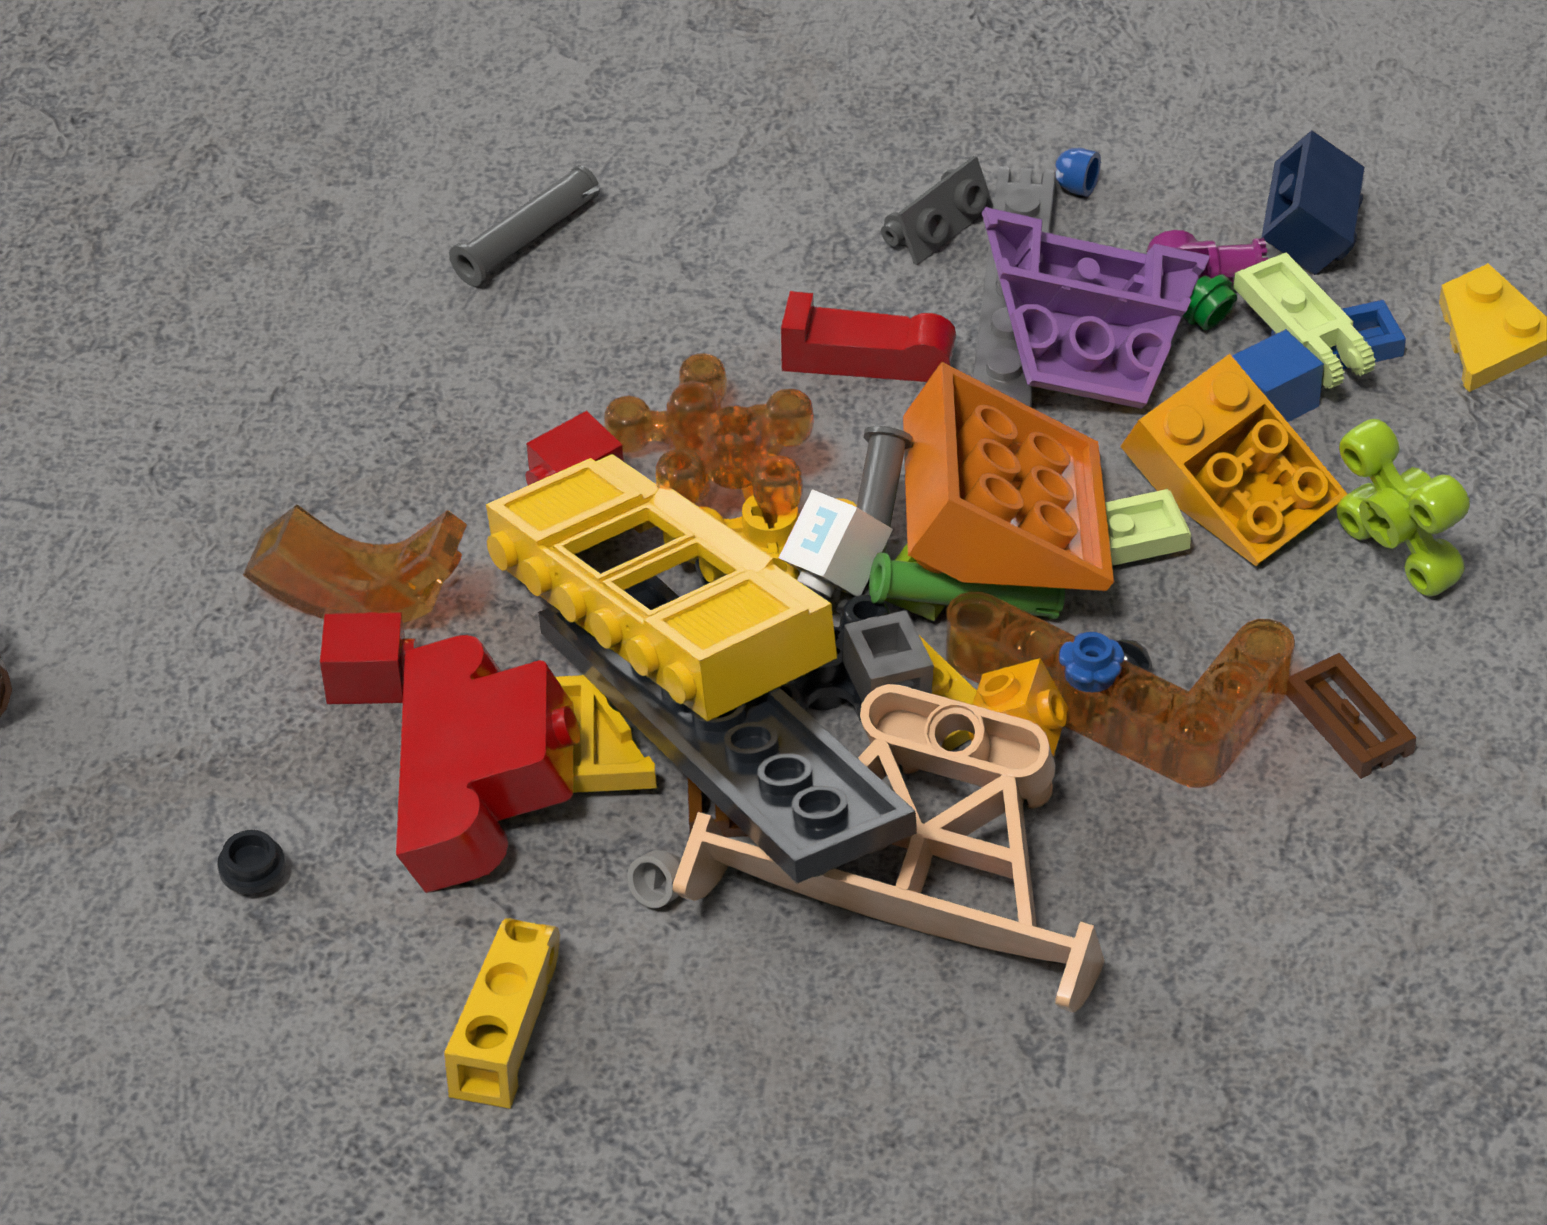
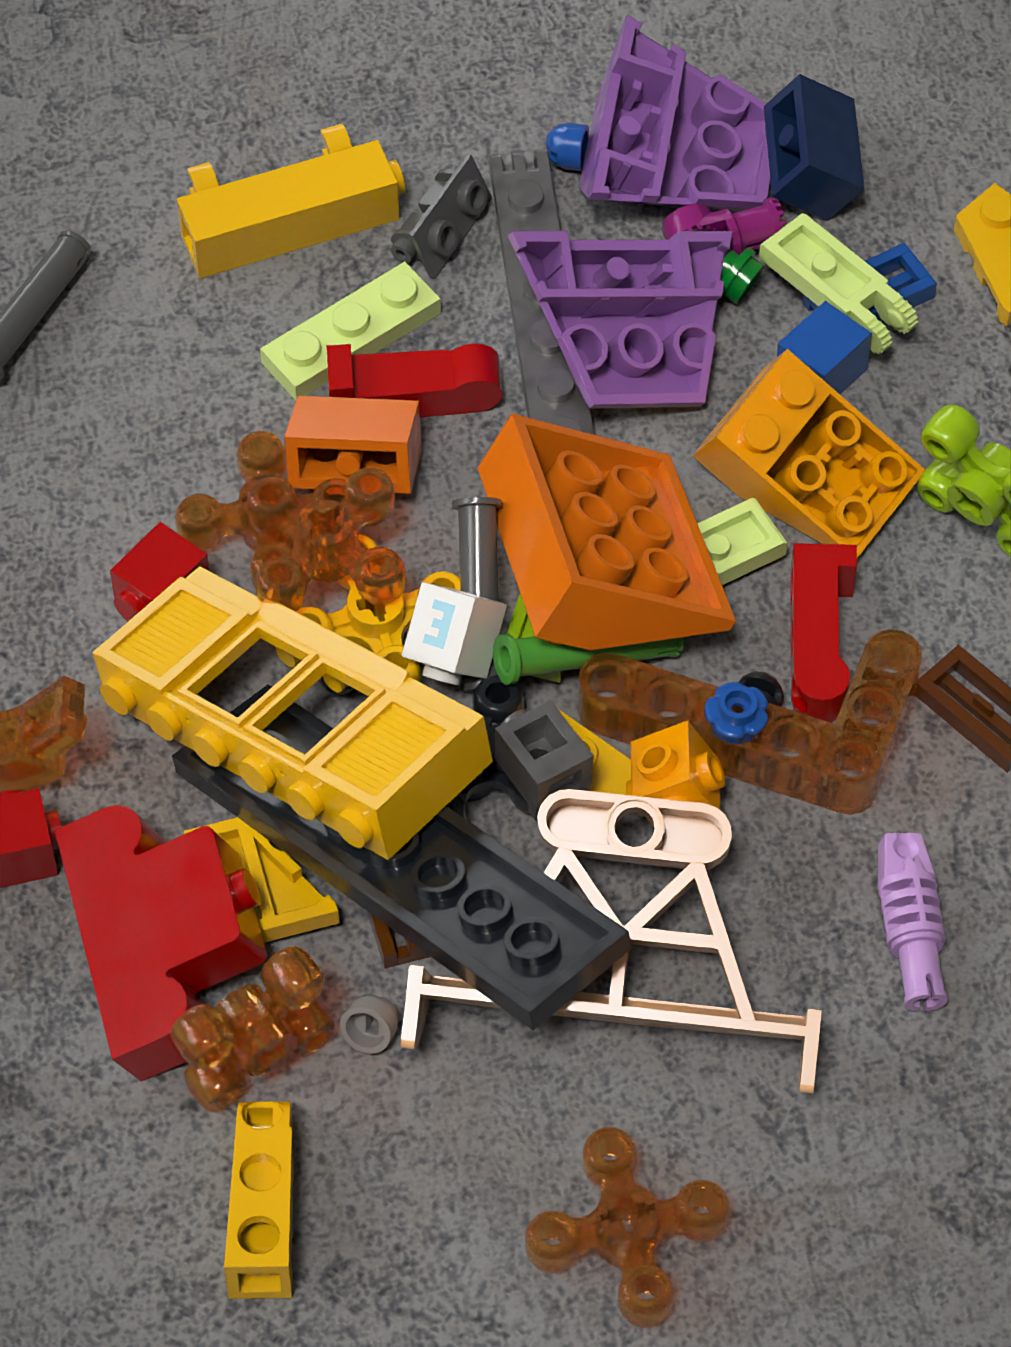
camera: 15 degrees left, 10 degrees up
(537, 850) = (253, 1029): none -> clear orange gear
(773, 362) = (347, 434): none -> orange brick
(795, 177) = (288, 206): none -> yellow brick
(845, 283) = (365, 319): none -> yellowish green plate
(854, 1103) = (647, 1217): none -> clear orange gear
(1181, 170) = (673, 133): none -> medium lavender wedge
(1212, 572) = (816, 581): none -> red leg
(1223, 884) = (912, 917): none -> lavender hinge

